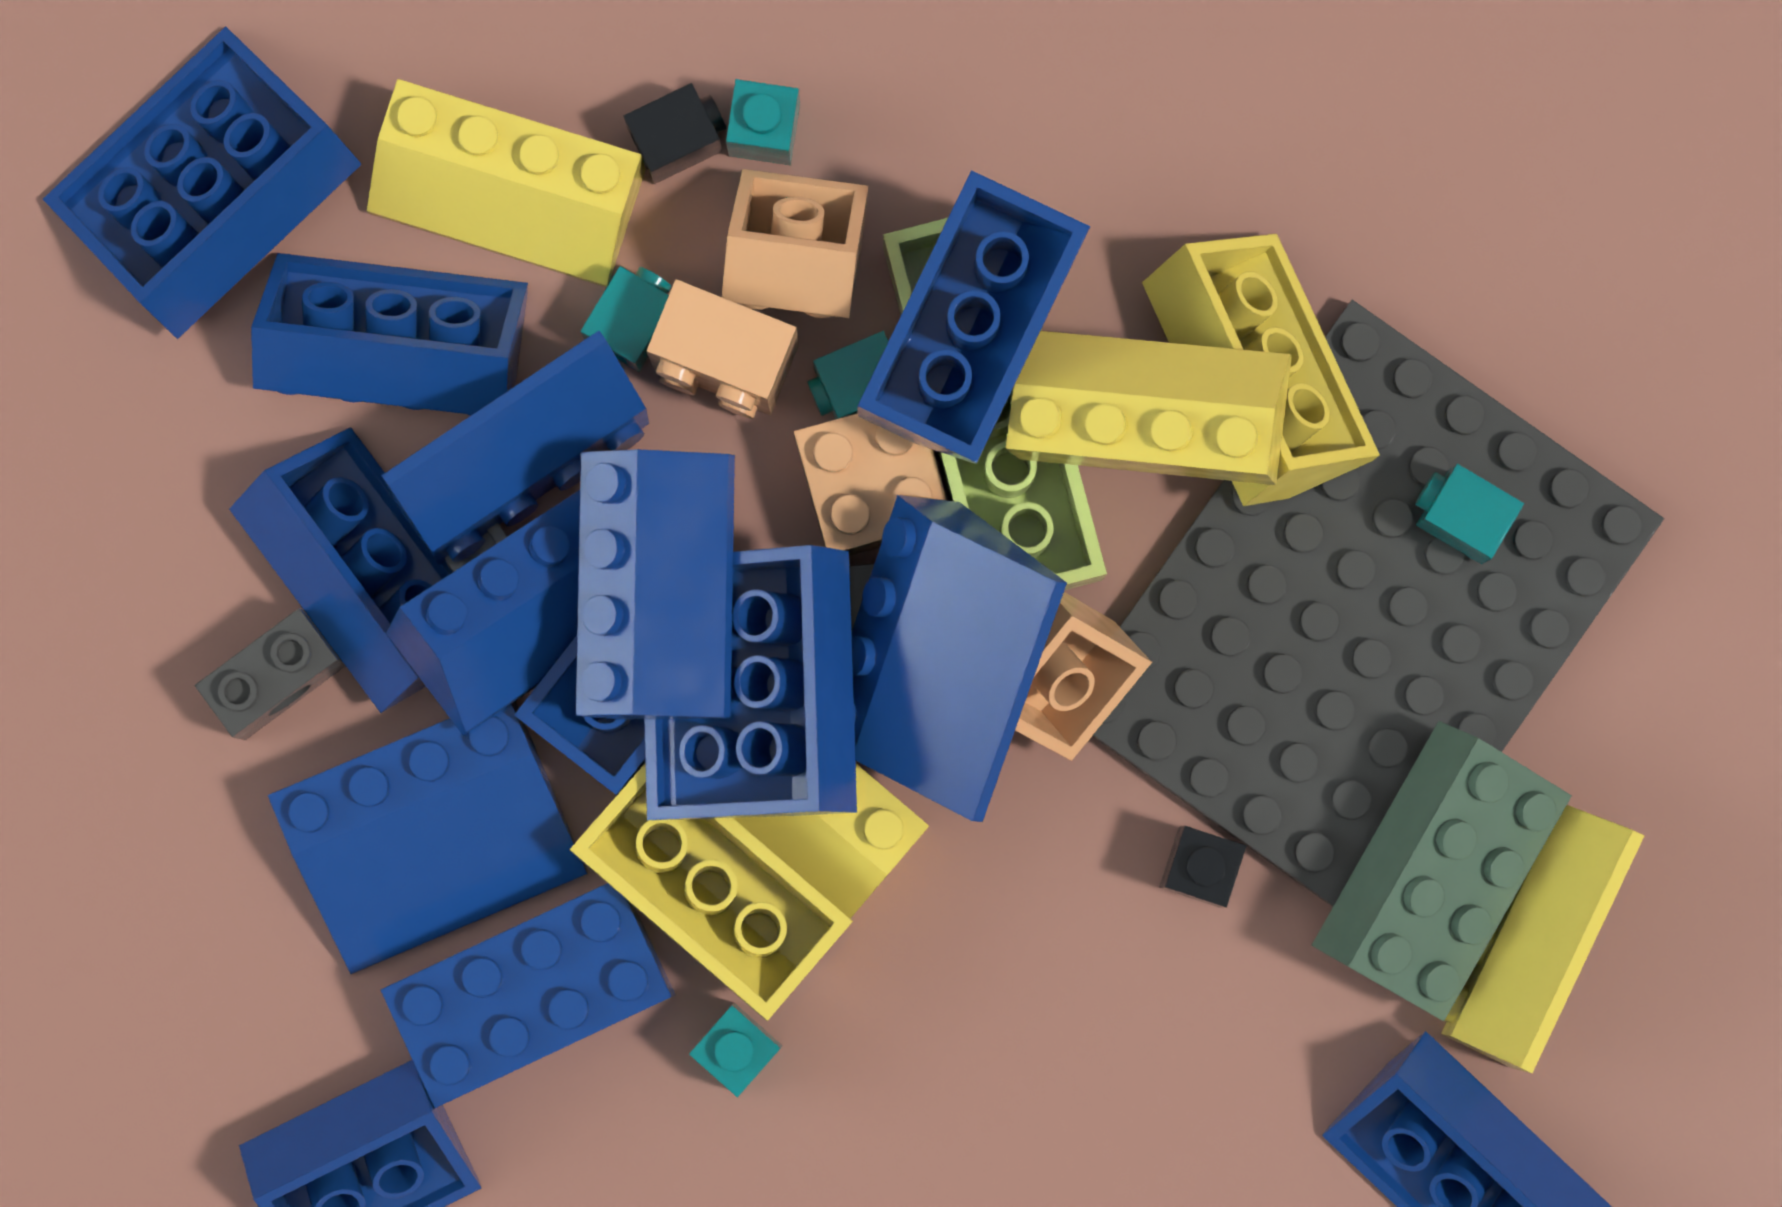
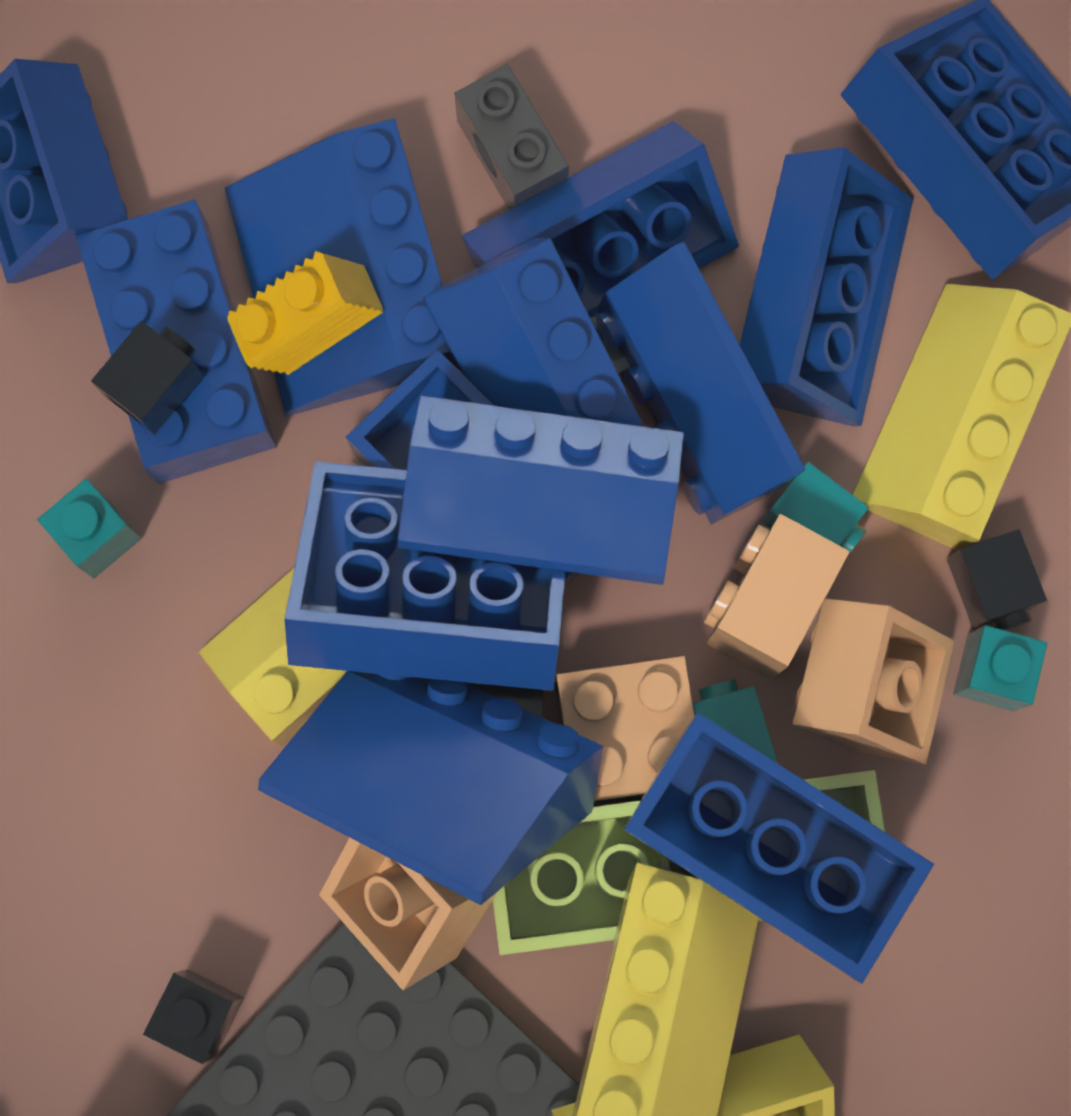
camera: 100 degrees right, 5 degrees down
(491, 856) = (304, 313): none -> yellow brick
(581, 996) = (149, 375): none -> black brick
(714, 895) = (231, 523): light yellow slope -> none

